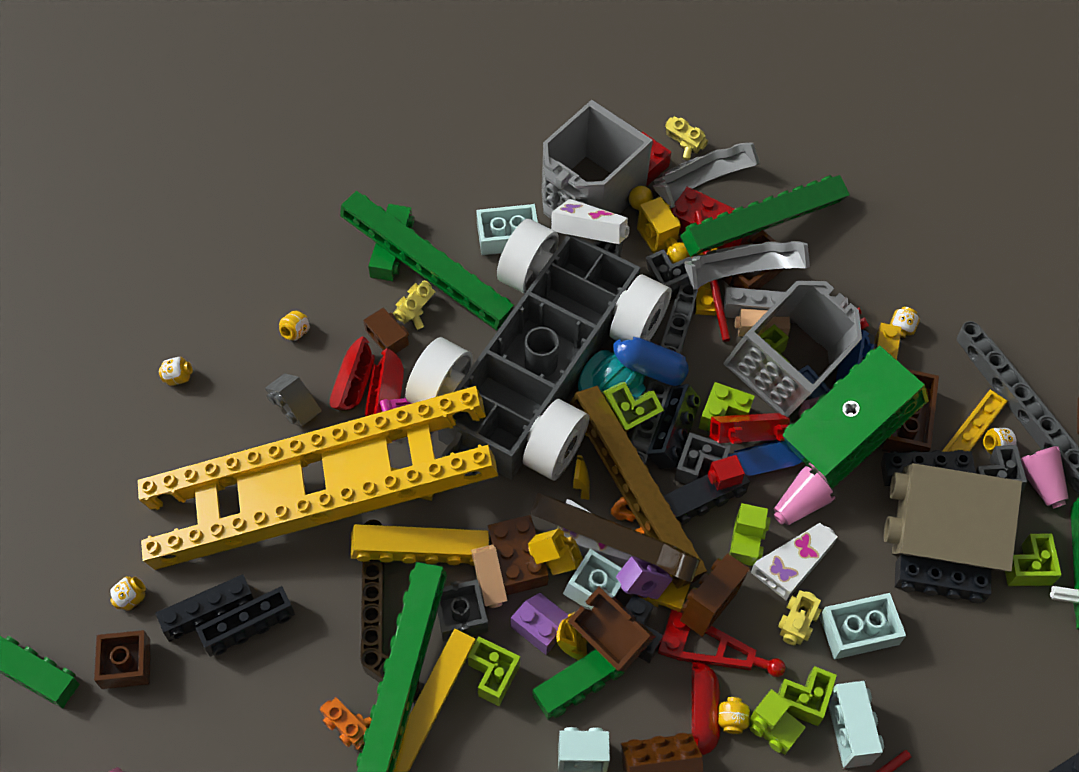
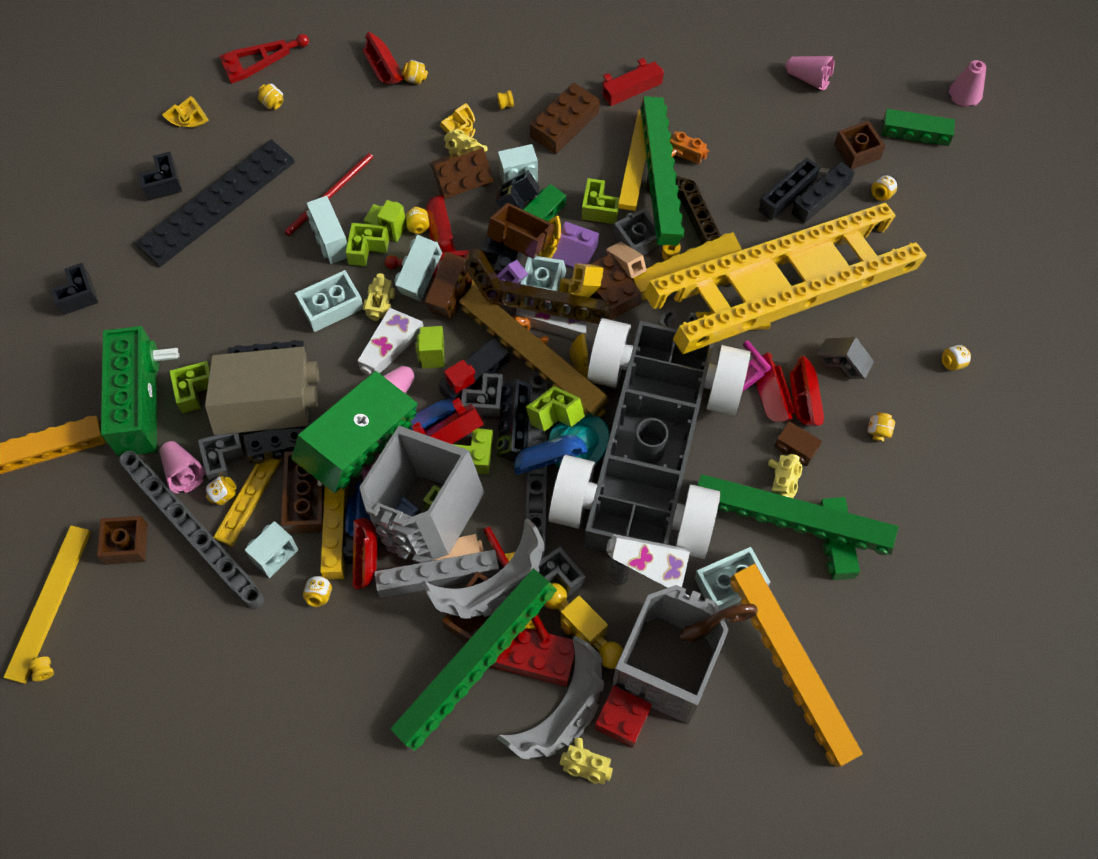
camera: 165 degrees right, 5 degrees up
(485, 152) = (796, 668): none -> light orange brick
(538, 141) = (731, 614): none -> reddish brown plant
(603, 706) = (518, 190): none -> black brick
(747, 626) = (418, 267): none -> light aqua brick
(951, 361) = (271, 549): none -> light aqua brick

